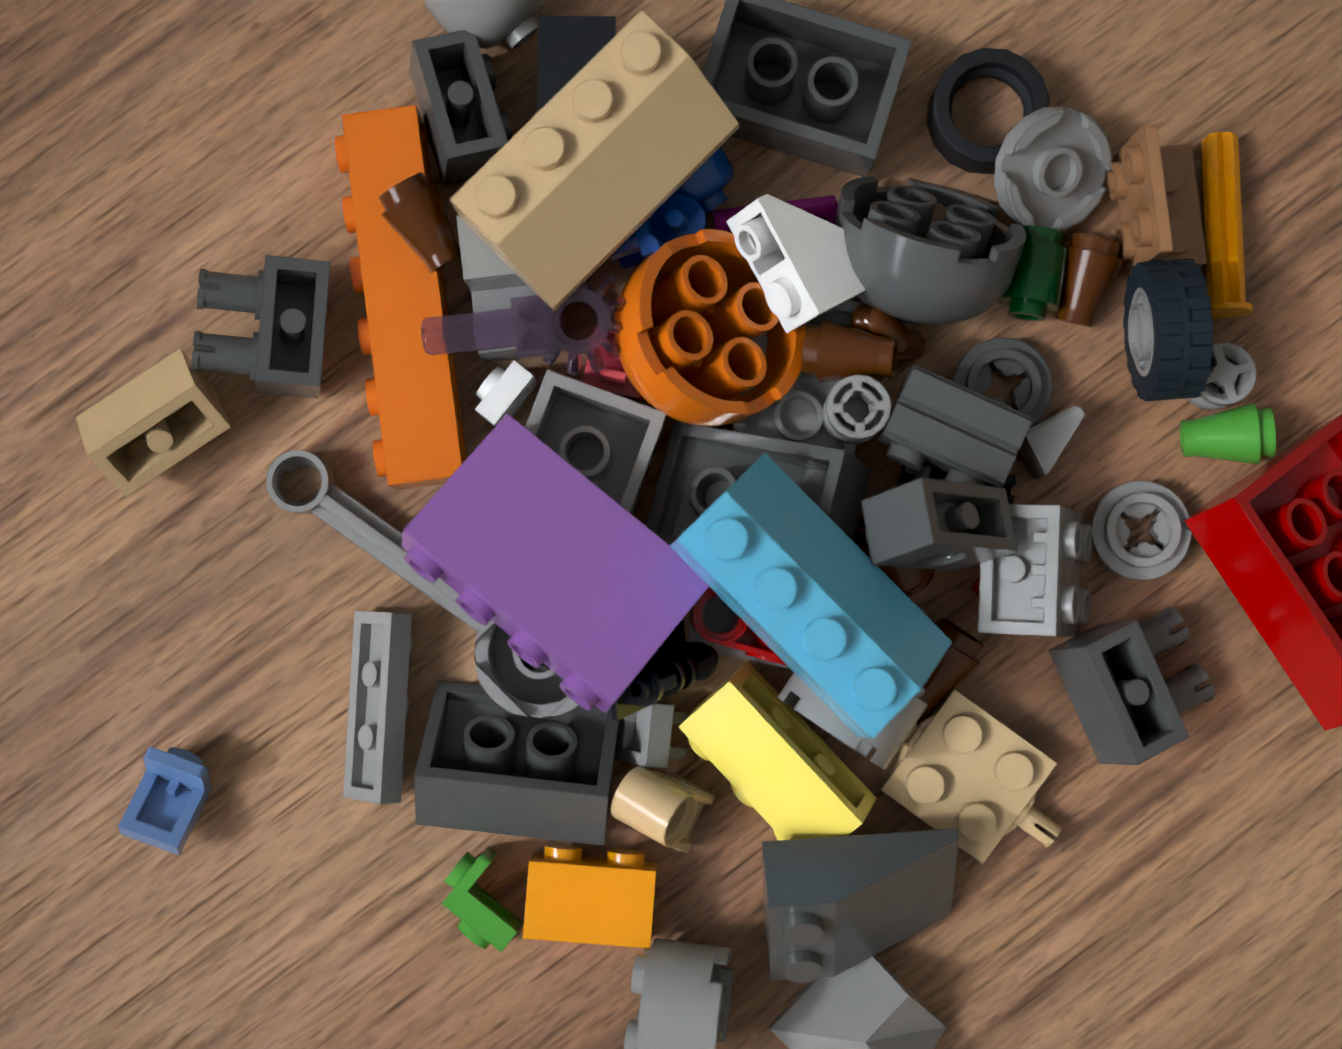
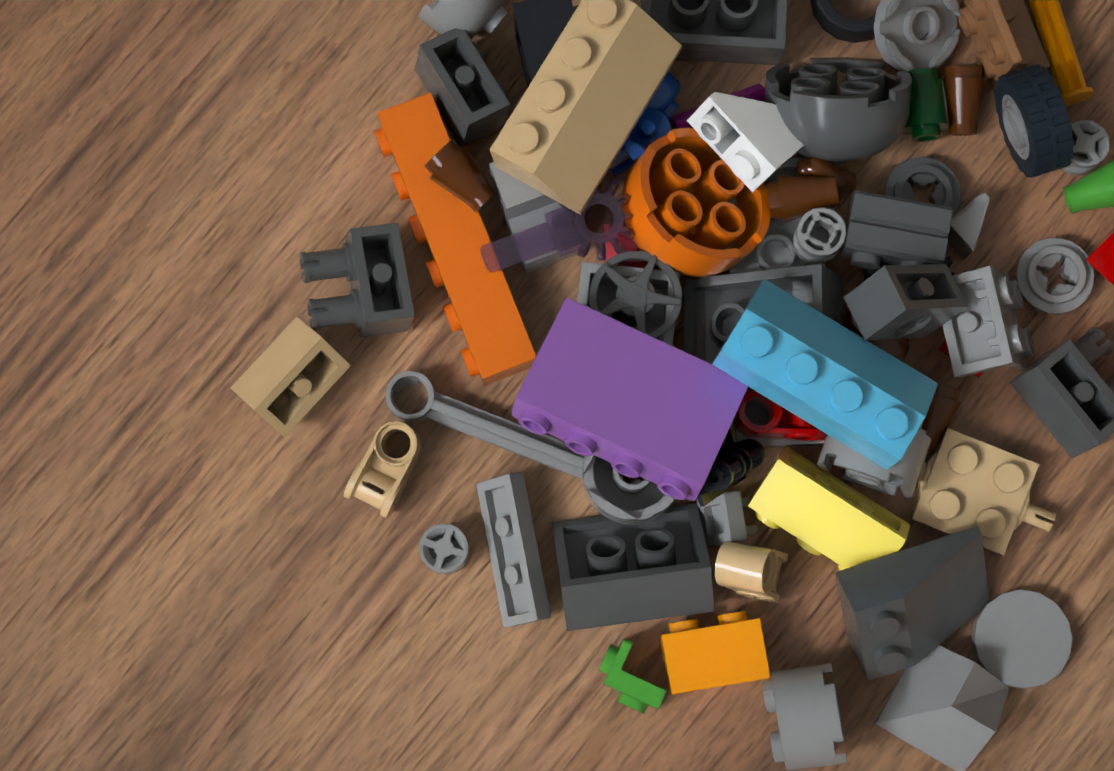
camera: 15 degrees left, 5 degrees down
(167, 799) = (370, 660): medium blue bracket -> none
(237, 572) = (383, 471): none -> tan piece
(282, 678) = (437, 546): none -> light grey wheel
(504, 392) = (549, 291): white plate -> none
(602, 428) = (636, 294): none -> dark grey wheel
(977, 971) = (1022, 638): none -> light grey tile

